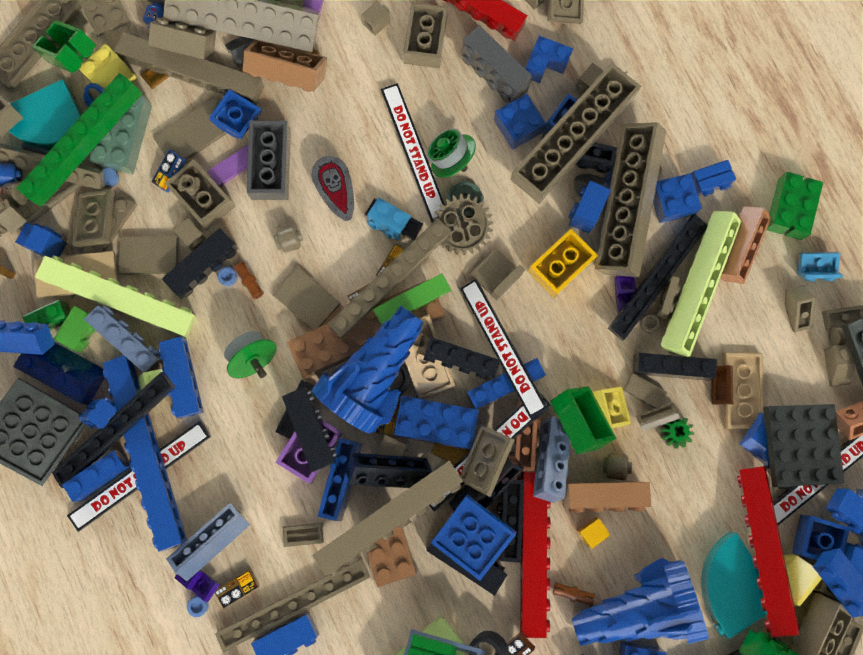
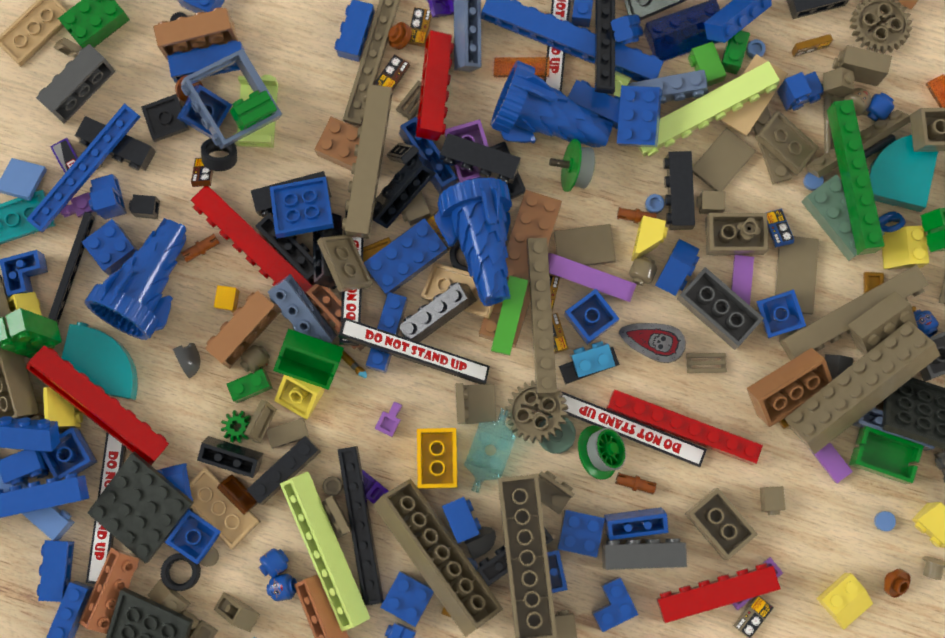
camera: 140 degrees right, 0 degrees up
(32, 303) = (755, 47): none -> medium blue tile
(166, 337) = (639, 116): none -> blue brick
(201, 472) = (503, 65): none -> clear orange tile
(230, 432) = (533, 106): none -> blue cone
(258, 596) = (399, 35): none -> dark orange plate
(259, 254) = (649, 235): none -> light yellow slope
(263, 213) = (679, 265): none -> blue brick
(278, 525) = (434, 86): none -> red brick
(297, 573) = (392, 72): none -> tile
(307, 129) = (722, 362): none -> dark tan tile
(327, 270) = (591, 277): none -> medium lavender beam
(357, 244) = (591, 316): none -> blue brick
(357, 498) = (402, 153): none -> black tile
(380, 116) = (684, 427): none -> red brick
(448, 114) = (636, 483): none -> dark orange pin
(478, 89) = (636, 523): none -> blue brick
(508, 161) = (553, 493): none -> dark tan bracket
(531, 223) = (486, 466): none -> clear light blue plate
(550, 393) = (351, 362): none -> pearl gold piece
(567, 323) = (388, 422): none -> medium lavender plate
(640, 450) = (249, 386): none -> green brick
(664, 519) = (188, 359): none -> dark grey brick
(704, 415) = (230, 456): none -> black brick
(743, 313) = (273, 563): none -> blue head
(753, 292) = (281, 587): none -> blue head
(782, 366) = (210, 558): none -> dark tan tile
(784, 386) = (193, 537): none -> blue slope
(823, 364) = (196, 570): none -> black tyre

